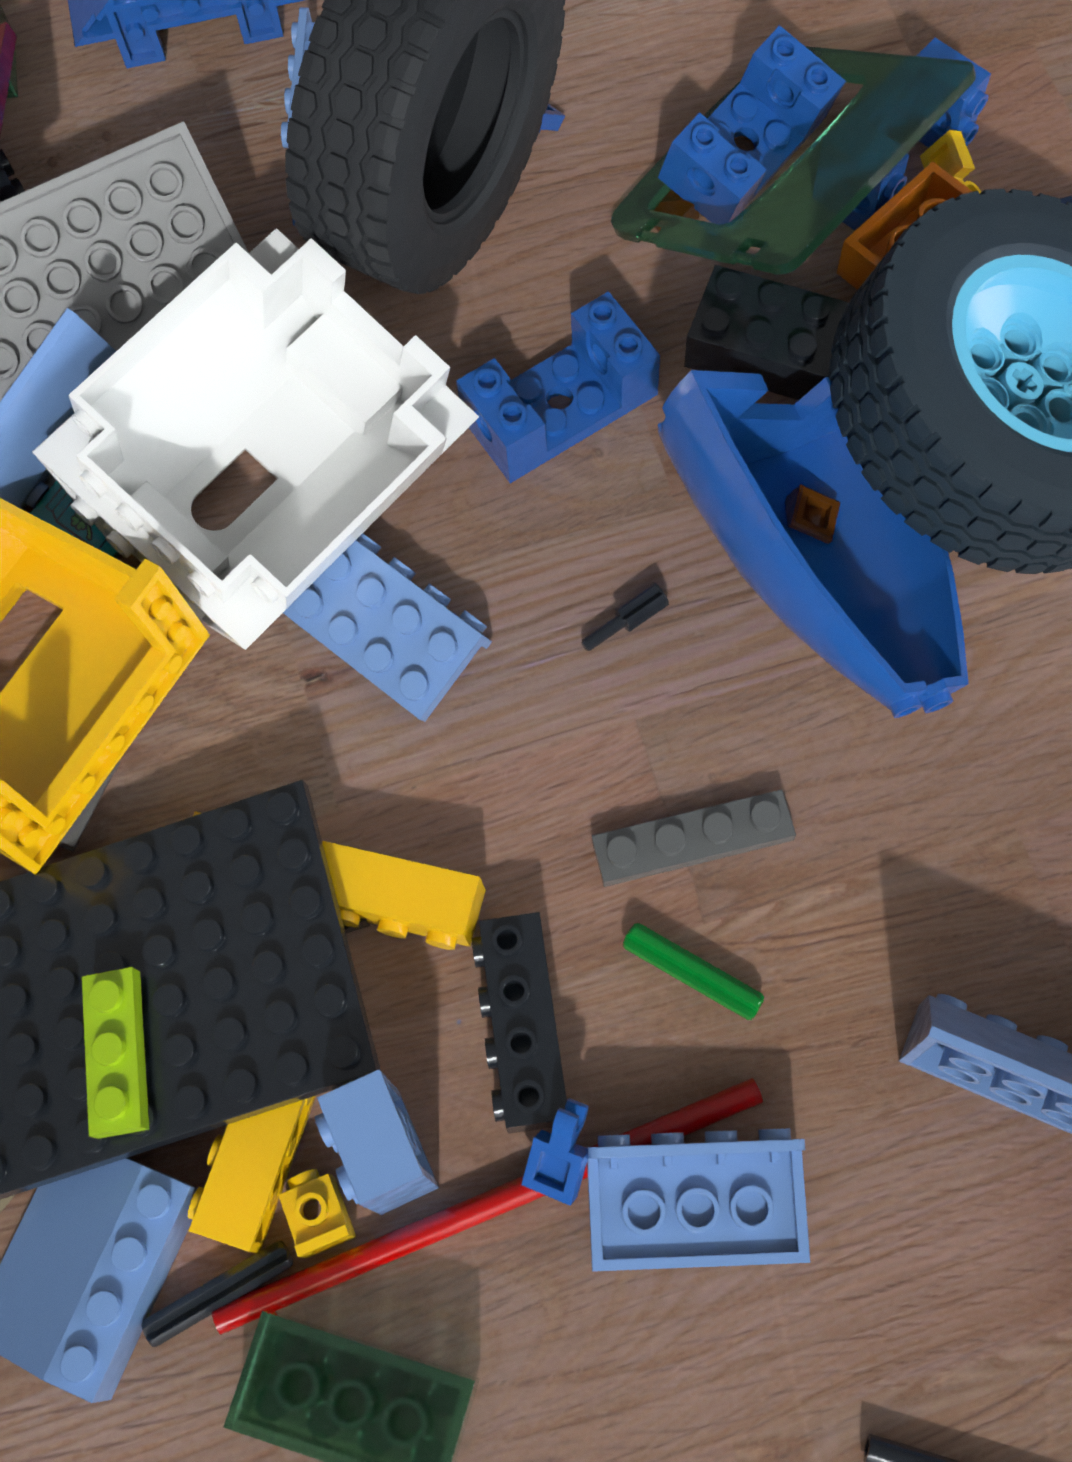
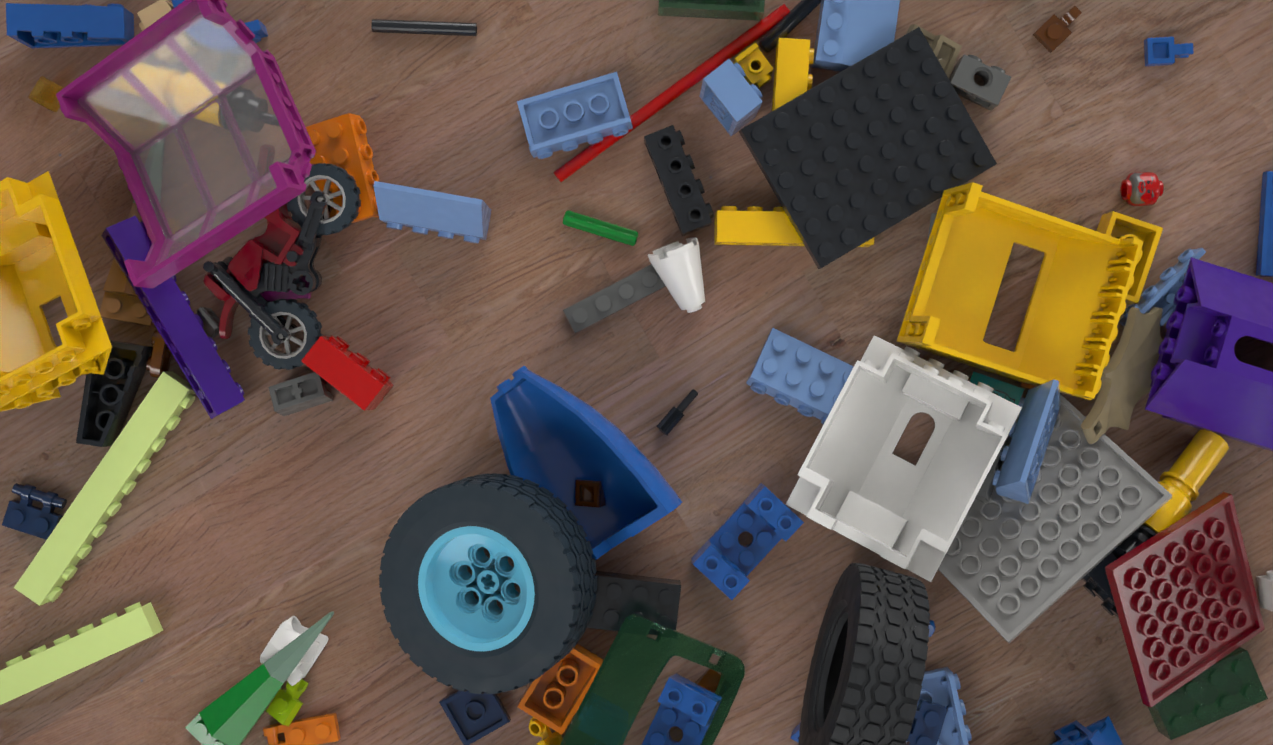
camera: 160 degrees right, 20 degrees up
(114, 1053) = (871, 108): lime plate -> none
(555, 1159) = (645, 115): blue plate -> none
(560, 851) = (681, 272): none -> white cone

